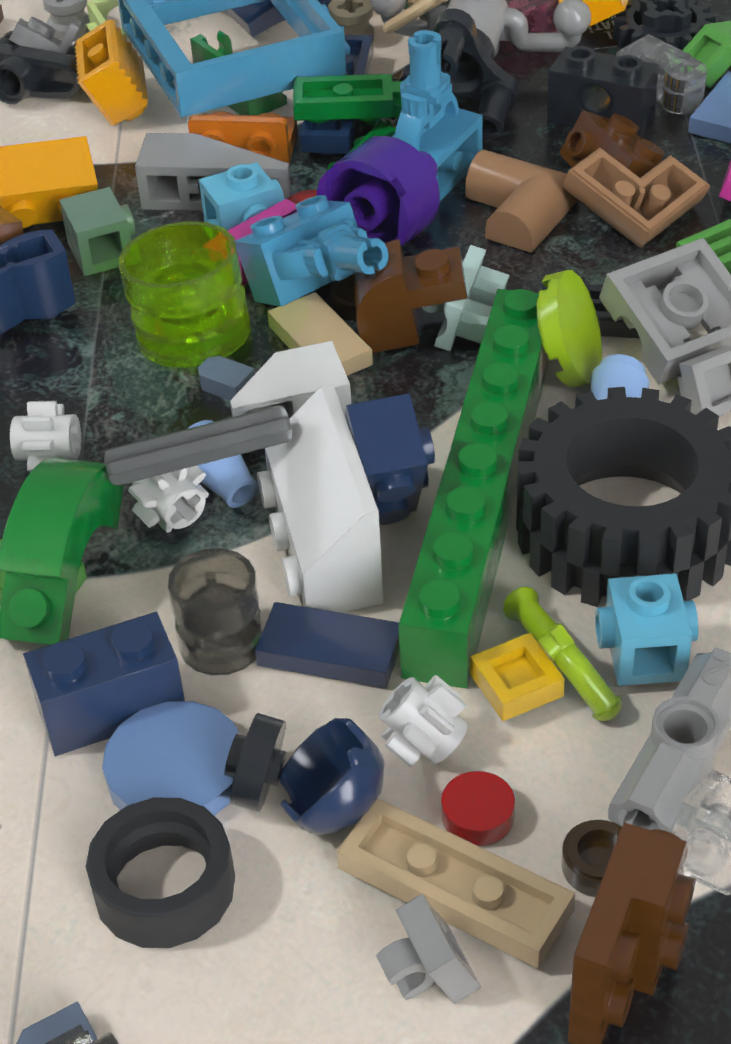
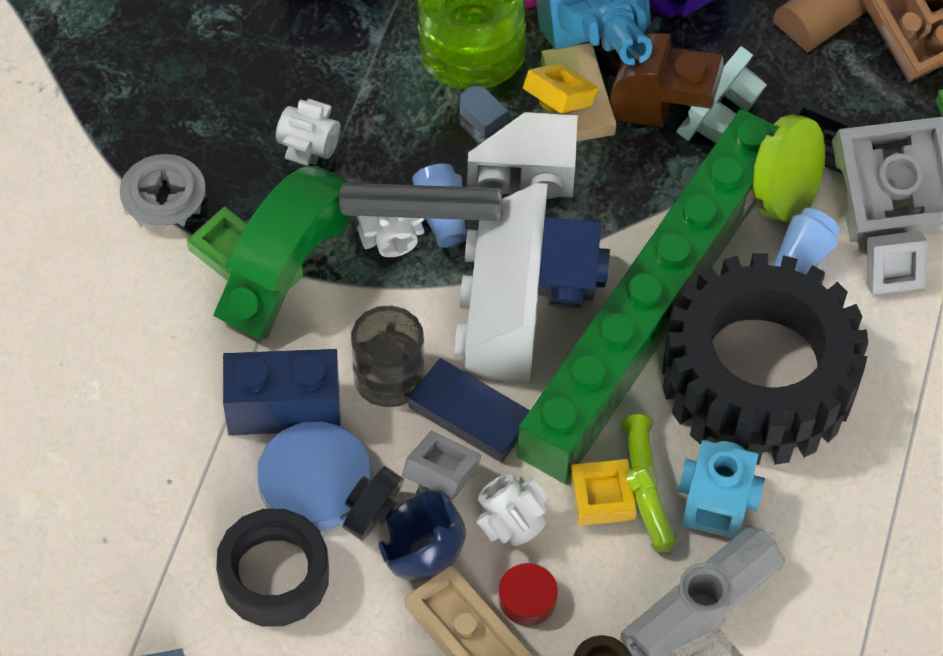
camera: 15 degrees right, 15 degrees up
(302, 327) = (560, 88): none -> yellow plate
(321, 696) = (441, 465): none -> light grey tile

